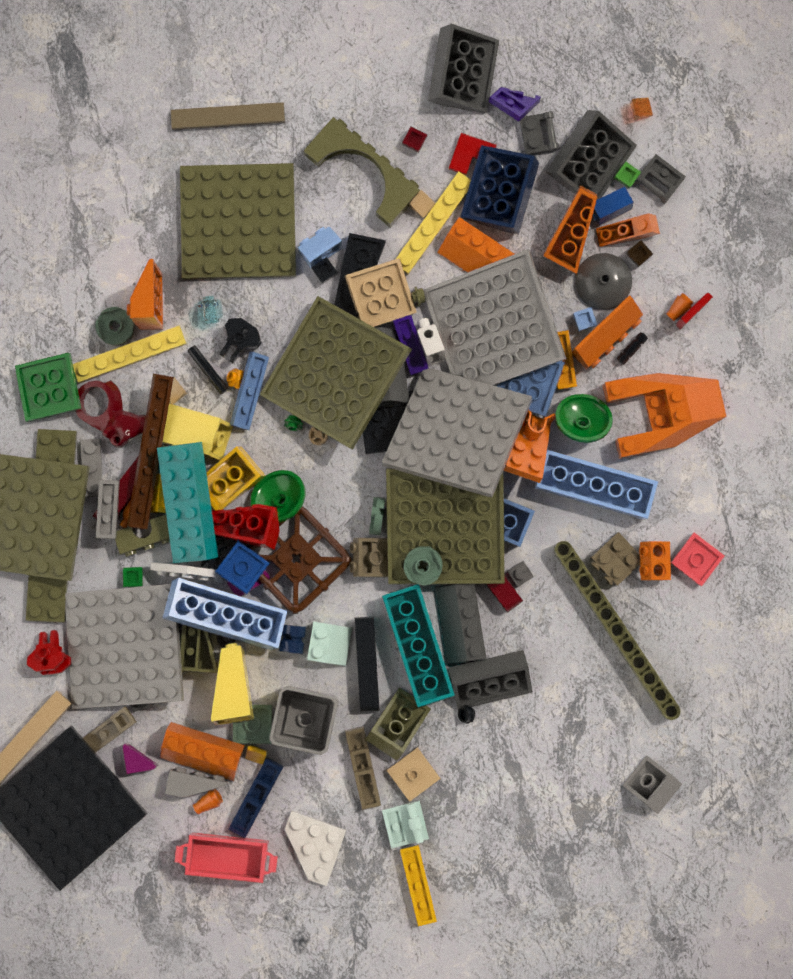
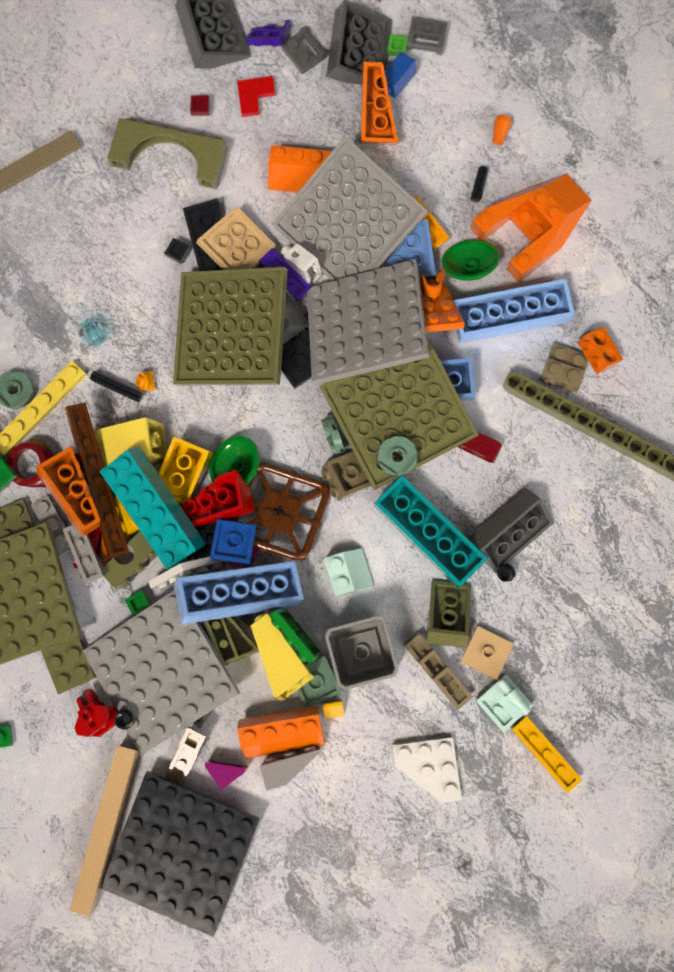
camera: 15 degrees left, 5 degrees down
(68, 671) = (120, 723): none -> black plate
(122, 445) = (66, 484): none -> orange wedge
(147, 299) = (27, 346): orange slope -> none
(177, 392) = (97, 418): tan slope -> none
(209, 801) = (312, 775): orange cone -> none
(226, 857) = (354, 822): coral container -> none
(237, 221) = (80, 248): olive plate -> none
(240, 340) = (132, 341): black hinge -> none
(249, 390) = (162, 385): medium blue plate -> none
(255, 676) = (295, 635): none -> green plate
(256, 797) = (353, 750): dark blue slope -> none
(292, 639) = (312, 584): dark blue wheel -> none
(293, 423) = (216, 393): green plate -> none
(315, 433) = (242, 390): tan wheel -> none
(322, 245) = (164, 228): light blue slope -> none
(367, 664) = (392, 573): black beam -> none
(418, 296) = (270, 231): olive plate -> none
(421, 204) = (233, 155): tan slope -> none
(434, 222) = (252, 163): light yellow plate -> none
(460, 623) = (457, 492): dark grey slope -> none
(500, 189) = (295, 107): dark blue slope -> none
(520, 574) = (486, 423): flat silver plate -> none
(584, 319) = (425, 179): light blue plate -> none
(597, 292) = (421, 151): dark grey dish -> none
(610, 330) = (451, 179): orange slope -> none
(628, 230) = (423, 88): orange slope -> none
(639, 253) = (442, 103): dark brown plate -> none
(694, 310) = (516, 123): red tile -> none
(697, 559) = (635, 331): coral plate -> none

